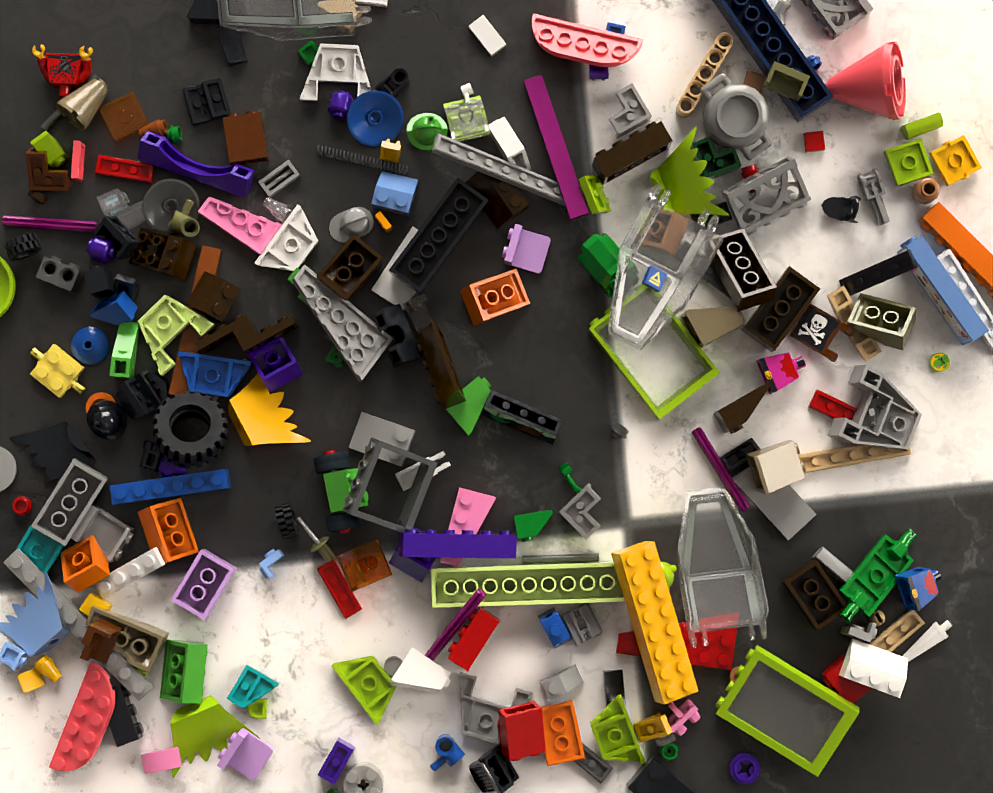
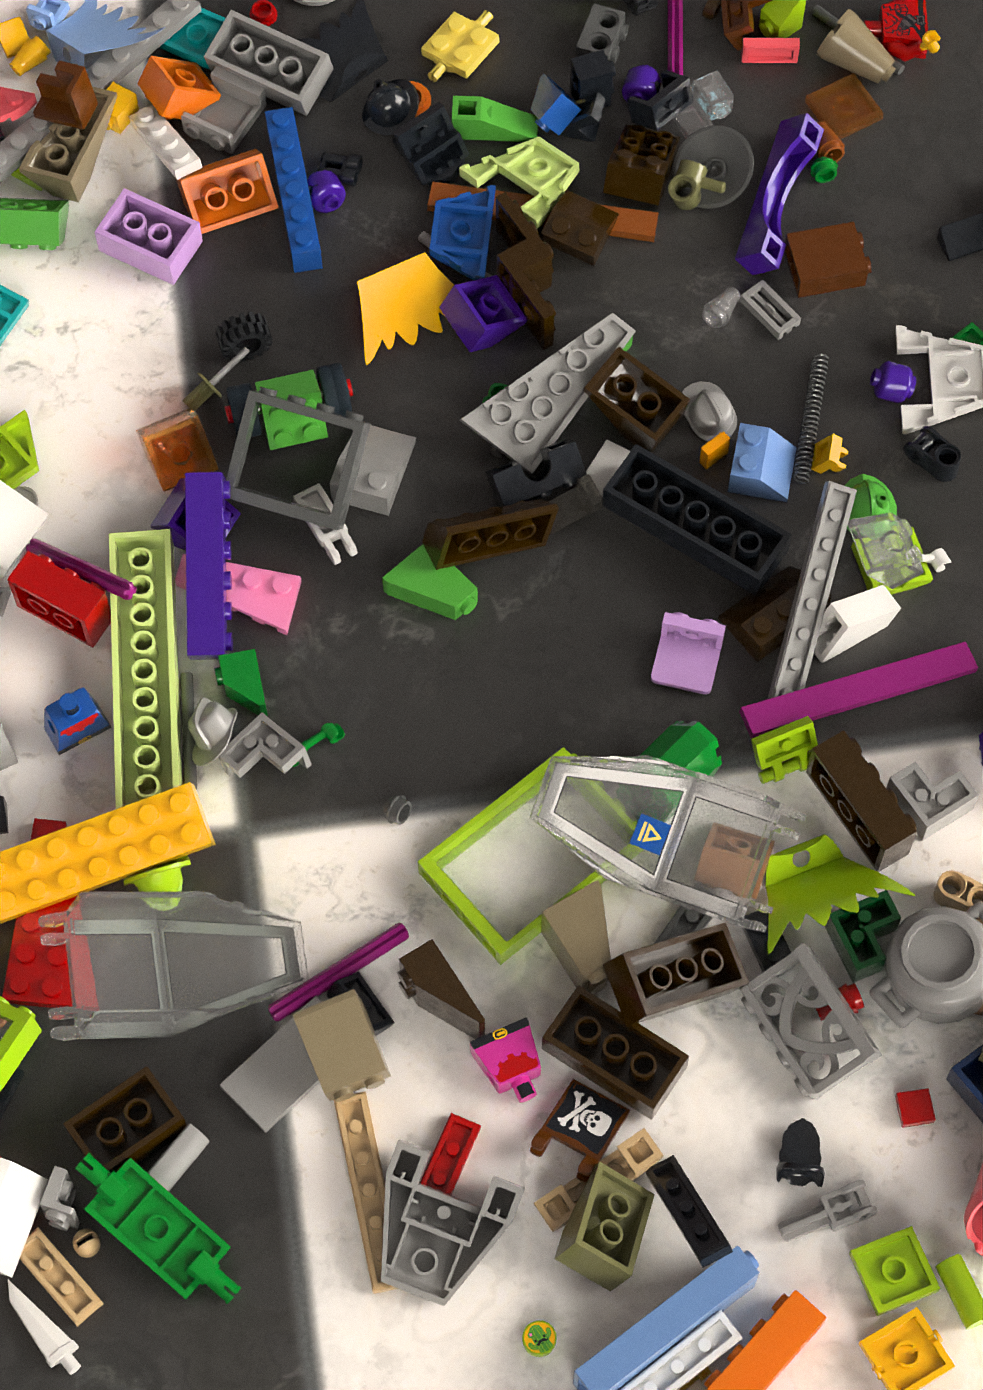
camera: 90 degrees right, 20 degrees down
(99, 347) = (508, 91): blue dish -> none
(124, 169) = (765, 111): red tile -> none
(190, 452) = (398, 175): black tyre -> none
(206, 101) = (878, 207): black slope -> none
(245, 227) = (691, 266): bright pink wing -> none
(271, 557) = (179, 318): light blue bracket -> none
(290, 244) = (671, 327): white wing -> none
(339, 589) = (122, 429): red tile -> none
(375, 118) = (878, 428): blue hat -> none
(494, 296) = (608, 613): orange slope -> none
(522, 417) = (413, 657): black brick -> none
(568, 542) = (211, 729): none -> light grey piece
(585, 612) = (87, 777): light grey piece -> none
(917, 587) = (139, 1302): blue torso -> none
(926, 191) = (849, 1288): medium nougat head -> none

